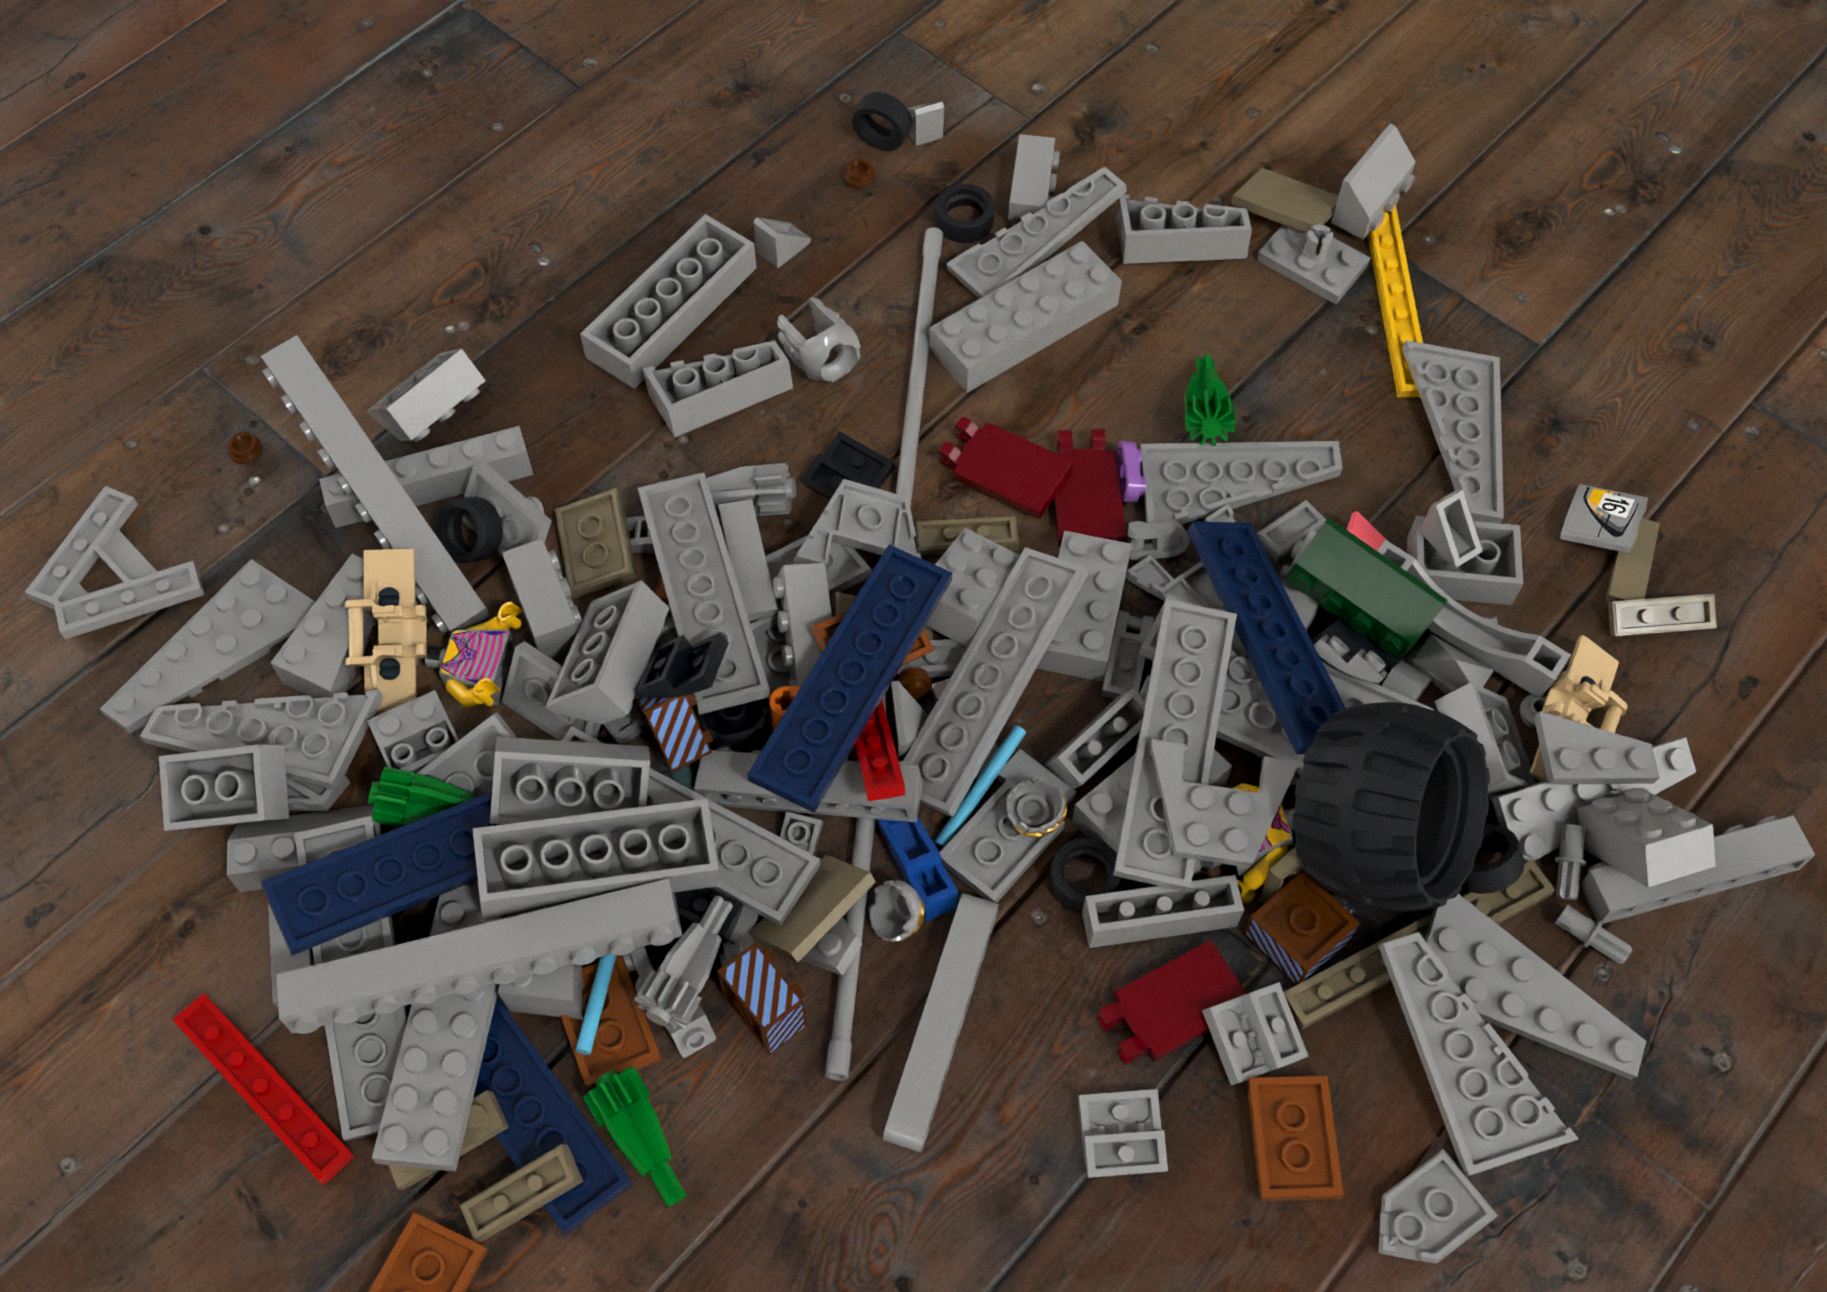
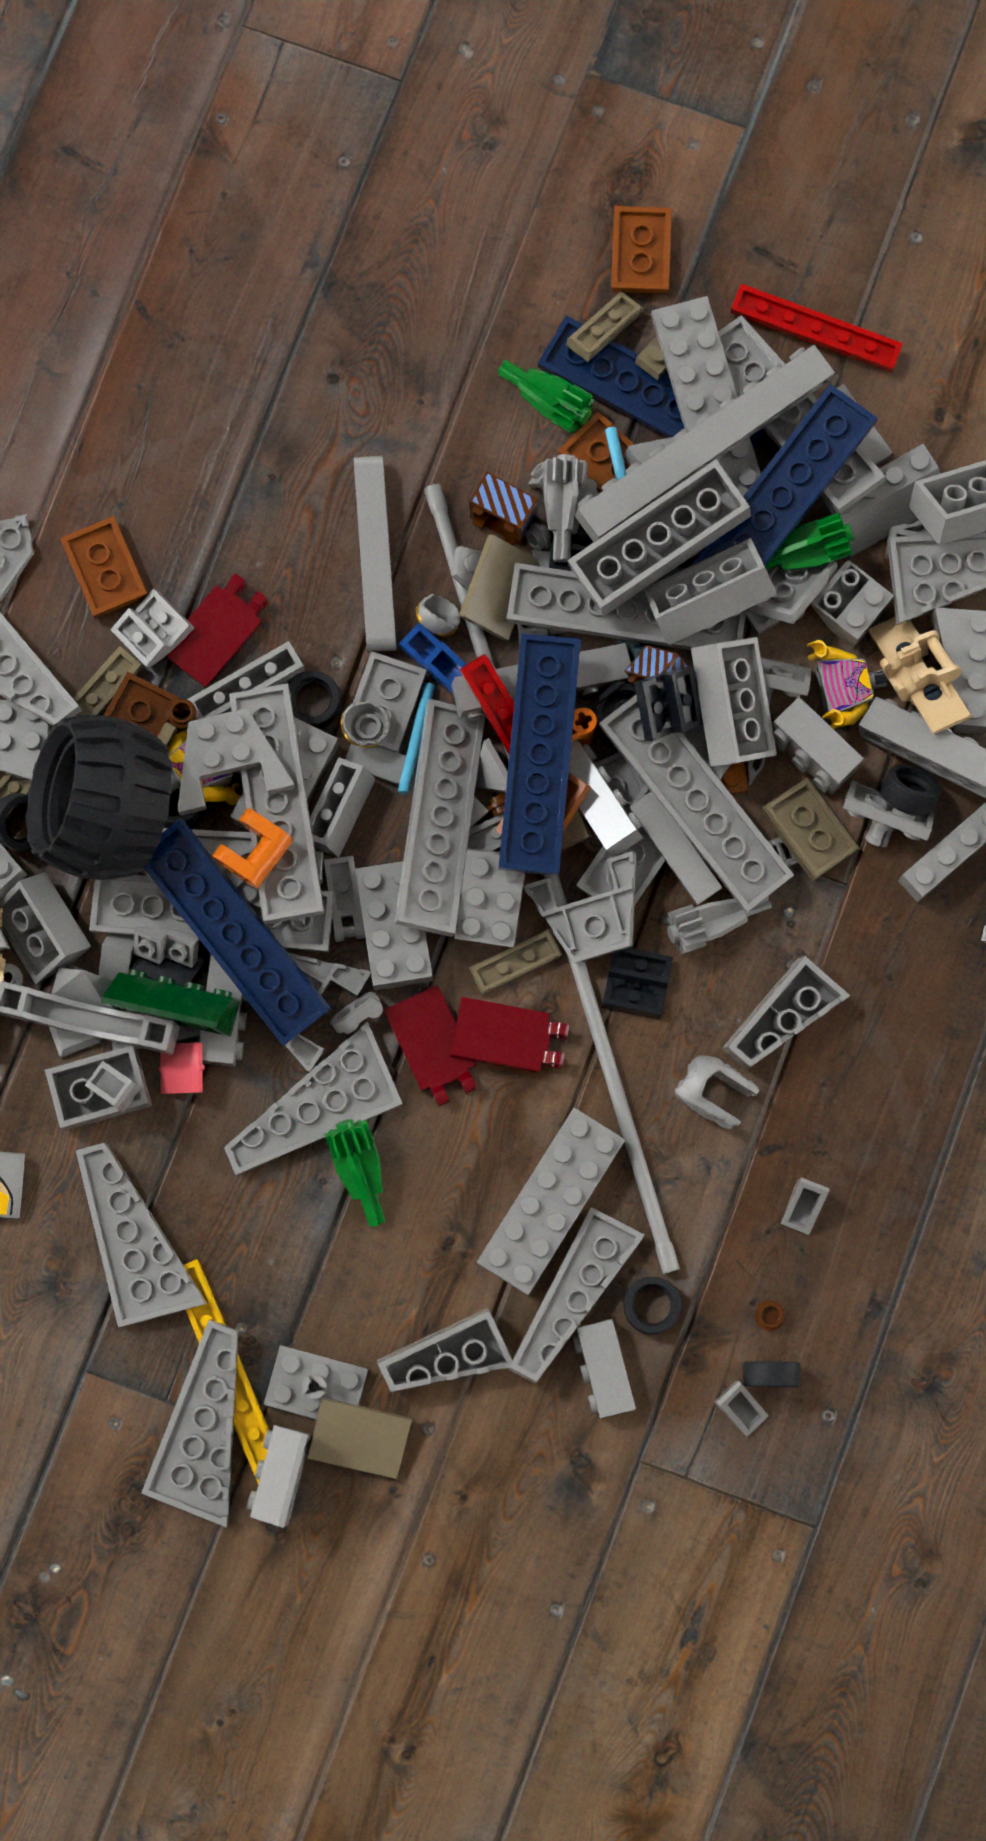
camera: 160 degrees right, 20 degrees up
(669, 300) = (866, 1086): light grey brick -> none
(1122, 1133) = (223, 527): light grey slope -> none
(1129, 463) = (397, 1062): medium lavender plate -> none
(1228, 662) = (263, 857): none -> orange connector
(1255, 887) = (180, 708): none -> reddish brown cone
(1282, 534) = (249, 1075): light grey tile -> none
(1443, 248) = (197, 1446): none -> light grey wing

